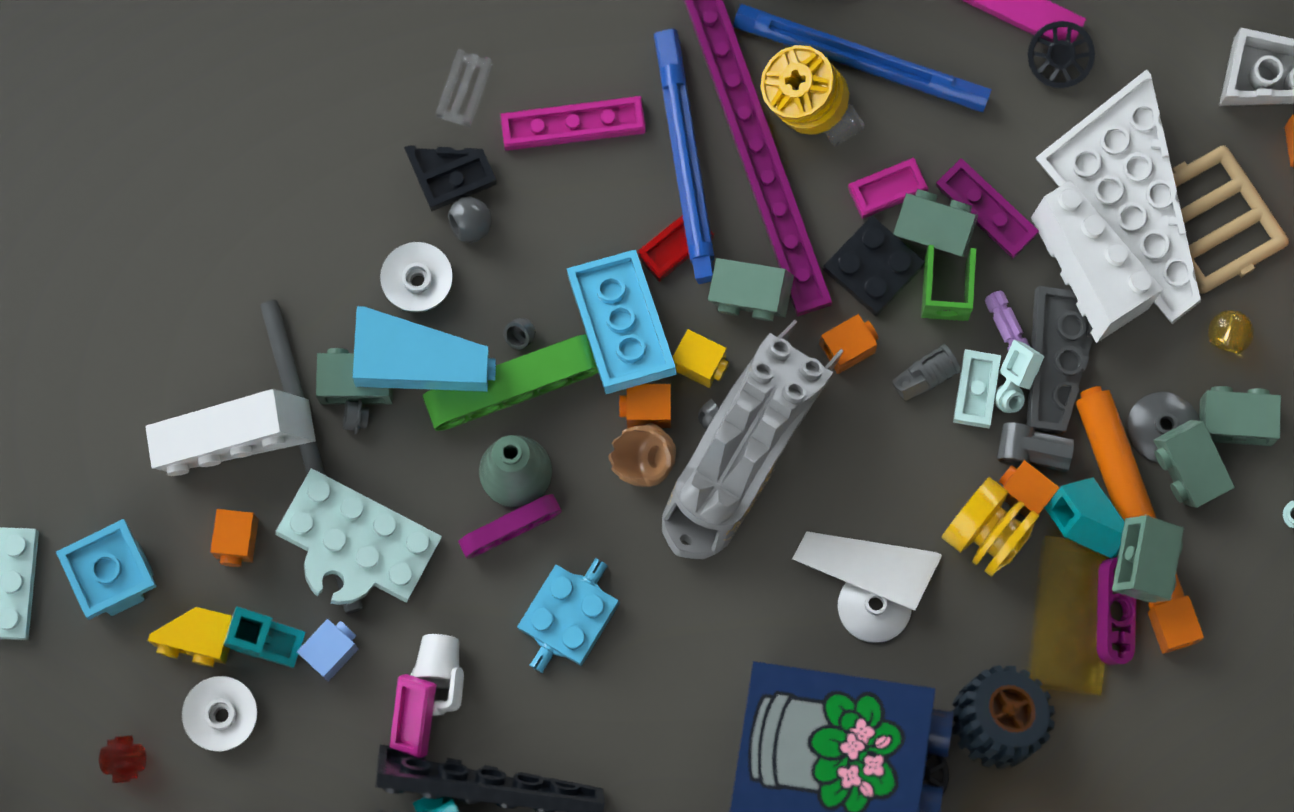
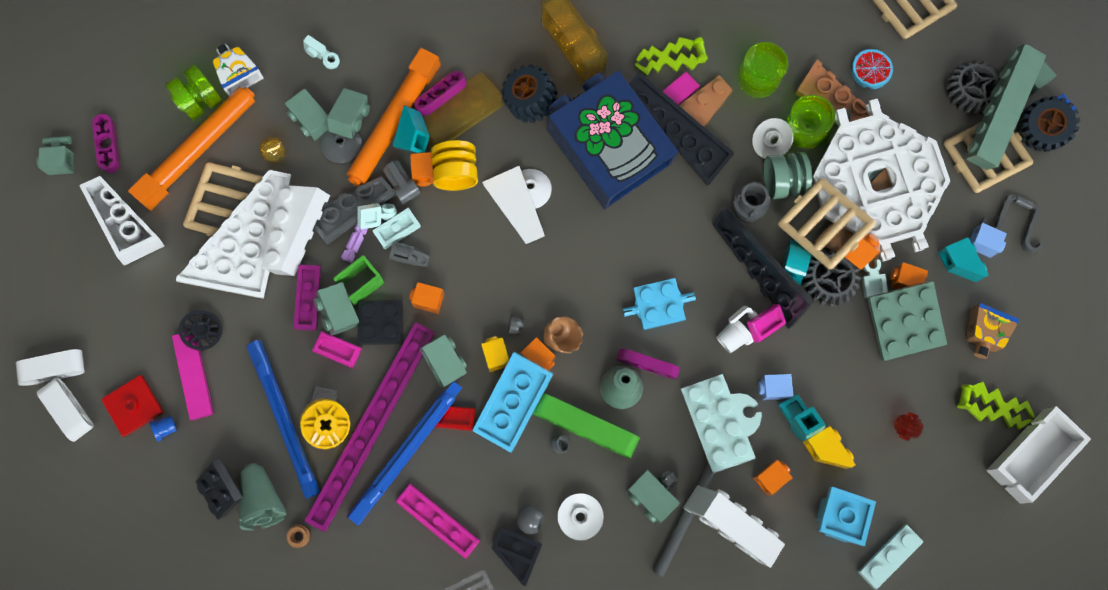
camera: 140 degrees left, 0 degrees up
(201, 709) = (858, 404): white dish -> none
(413, 356) = (623, 476): medium azure slope -> none
(742, 447) = (516, 288): light grey animal -> none
(1148, 559) = (410, 88): sand green brick -> none

